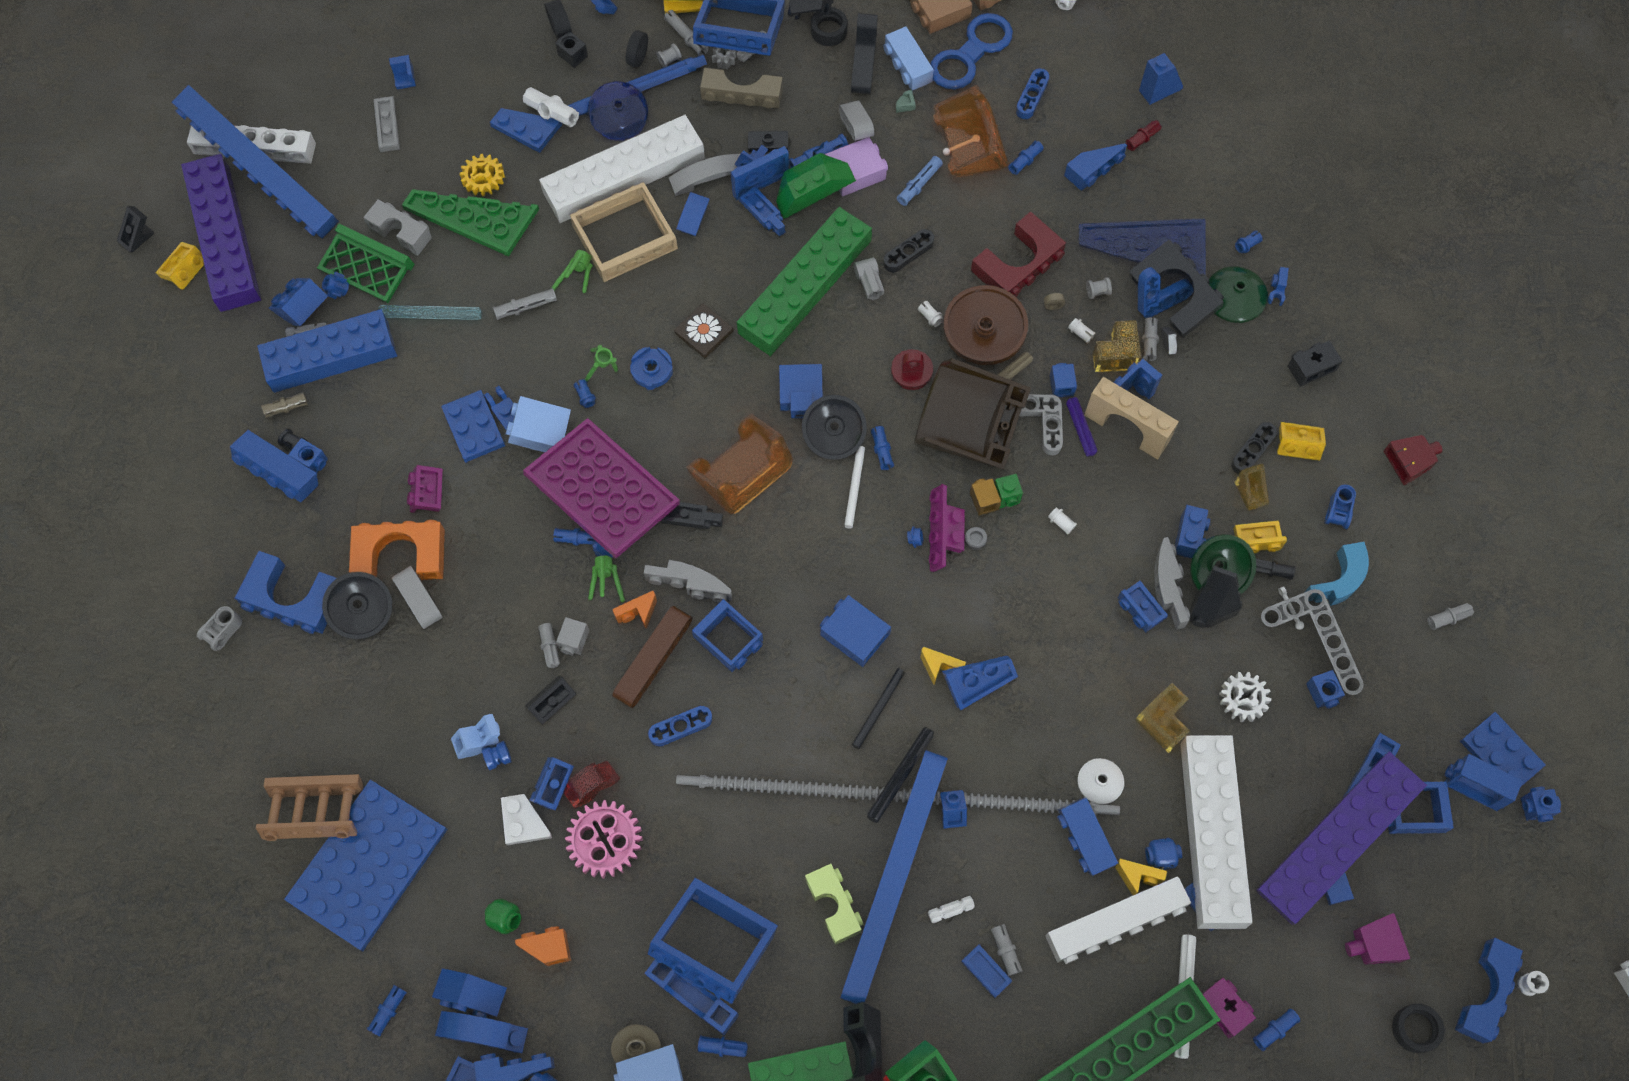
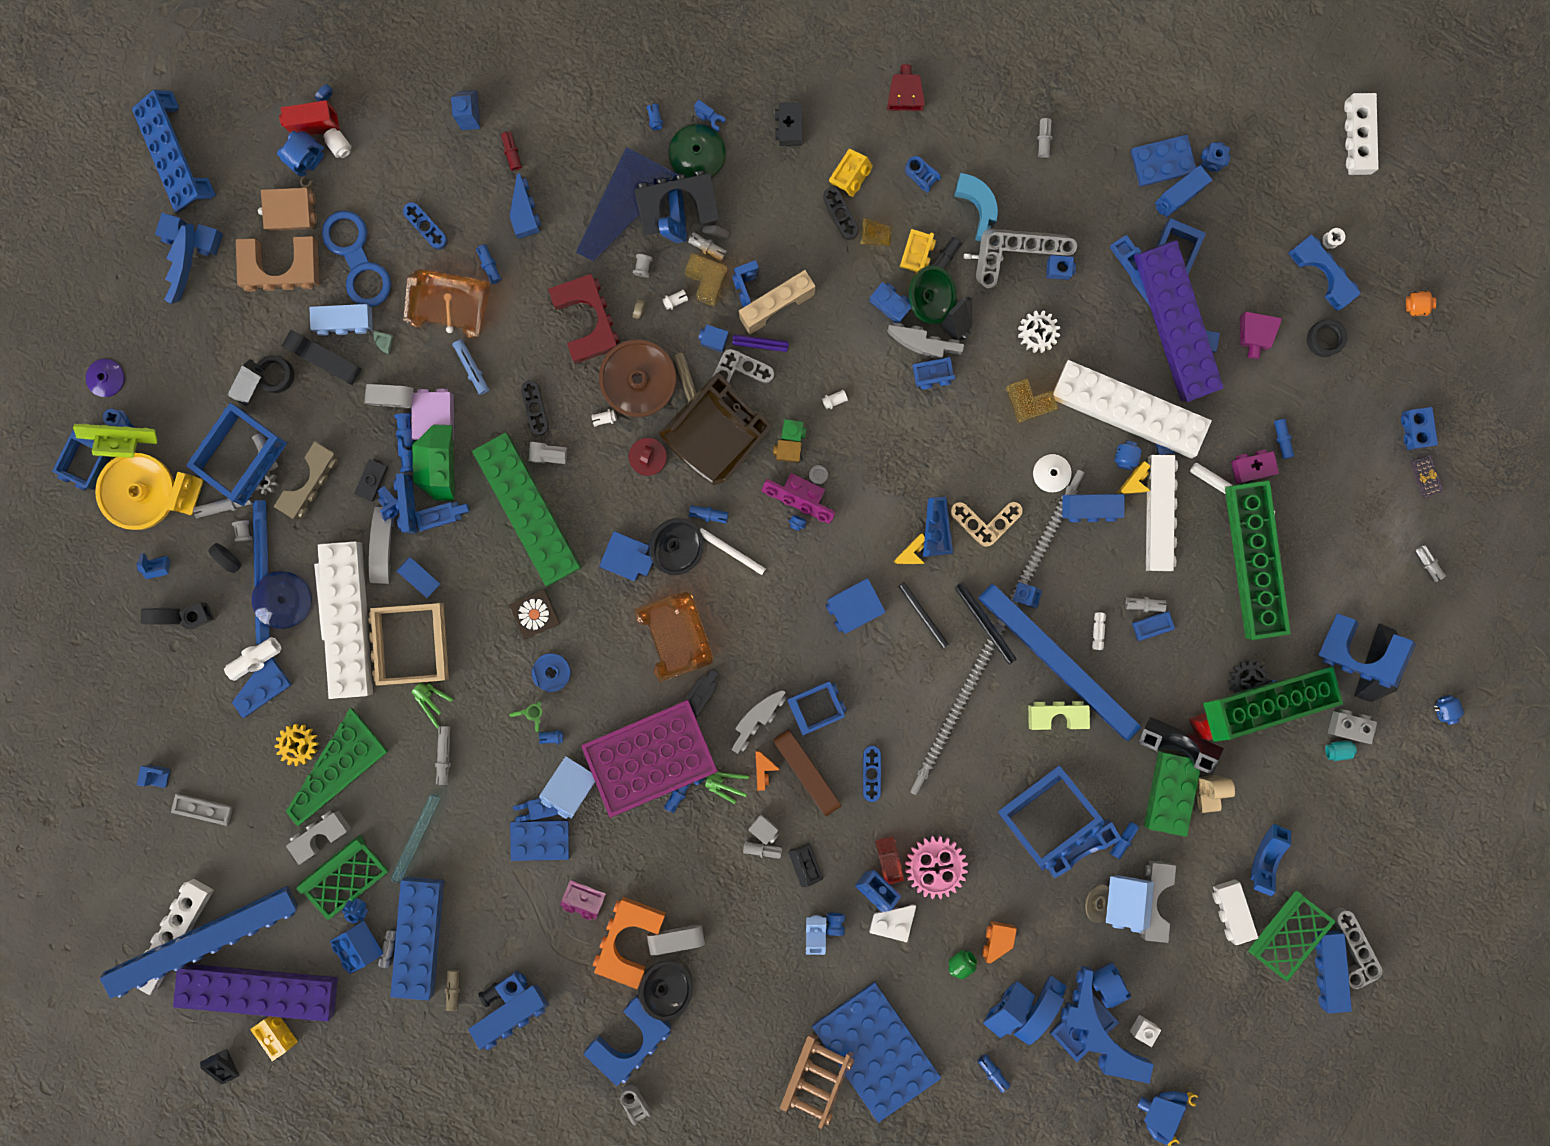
camera: 65 degrees left, 20 degrees up
(1007, 737) = (990, 527): none -> tan beam

